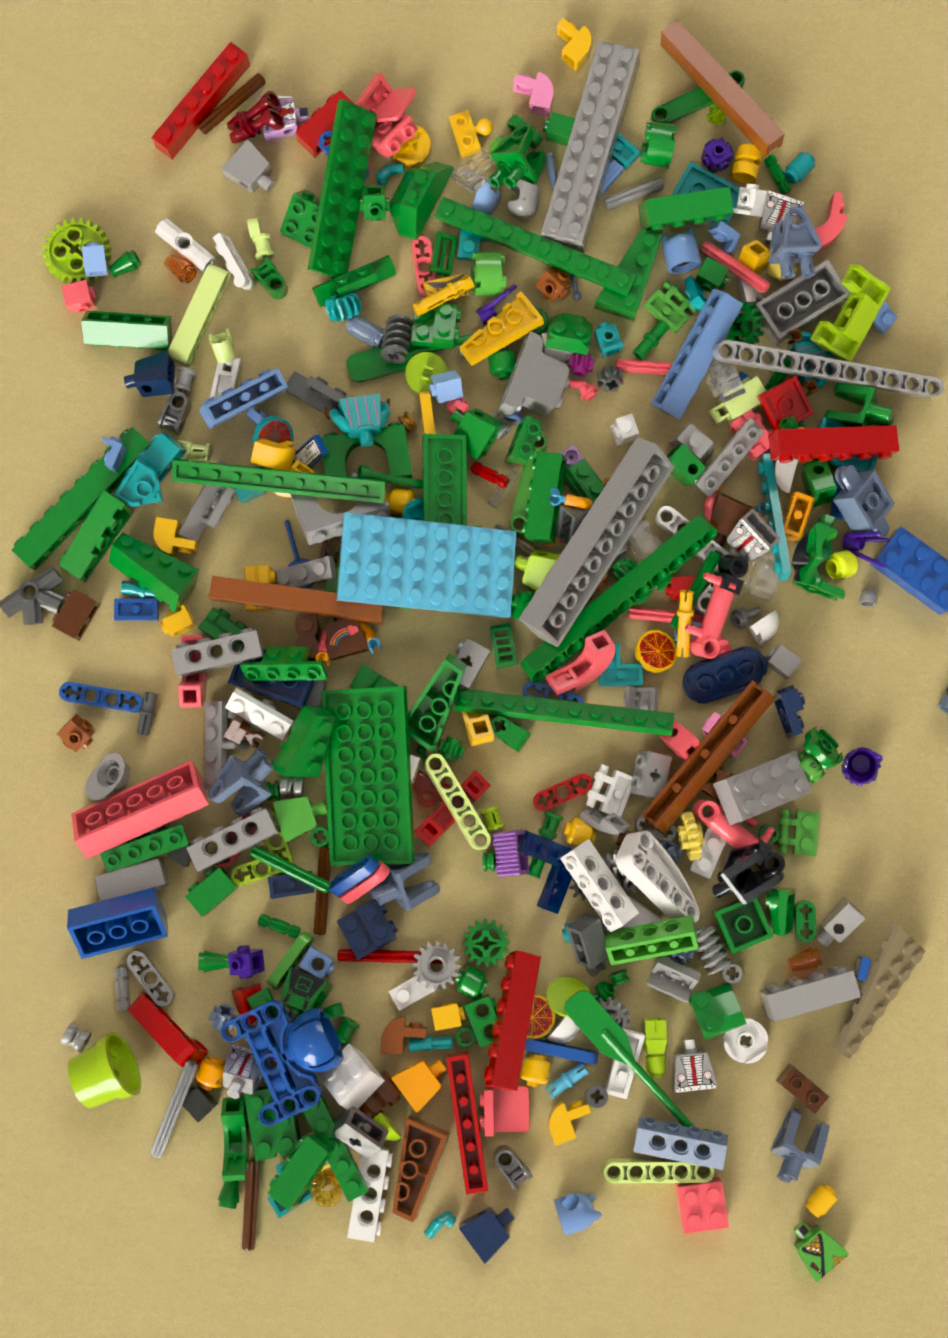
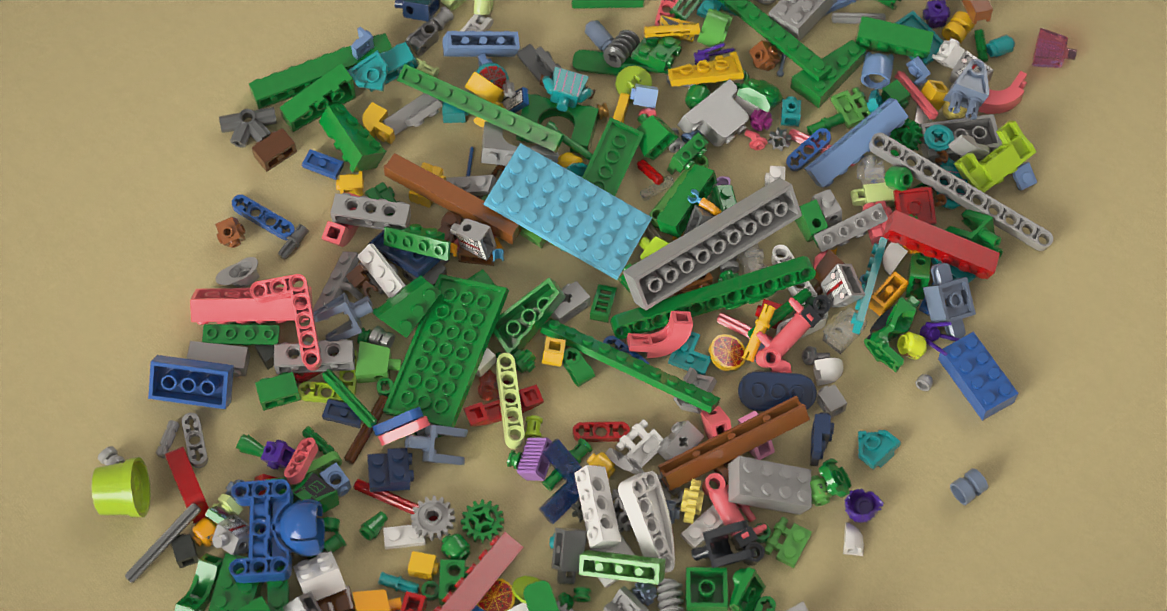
camera: 20 degrees right, 20 degrees down
(134, 589) = (331, 150): teal pin -> none
(198, 810) = (299, 312): none -> coral beam
(215, 1037) = (228, 505): none -> yellowish green plate
(216, 1054) = (216, 514): none -> tile
(278, 969) = (296, 471): none -> coral beam
(299, 442) = (509, 89): none -> light grey axle
(341, 638) = (475, 237): none -> light grey torso
(343, 307) = (590, 10): teal gear -> none
(377, 994) = (372, 527): none -> green cone
(394, 1033) = (373, 561): dark orange brick -> none
(659, 367) = (815, 136): none -> blue beam
(759, 381) = (898, 178): none -> green head
(792, 311) = (937, 131): none -> teal gear
(818, 313) = (967, 144): none -> light grey slope
(847, 693) = (876, 447): none -> teal plate
(855, 149) = (1051, 50): none -> clear pink torso
(862, 803) = (853, 540): none -> white brick

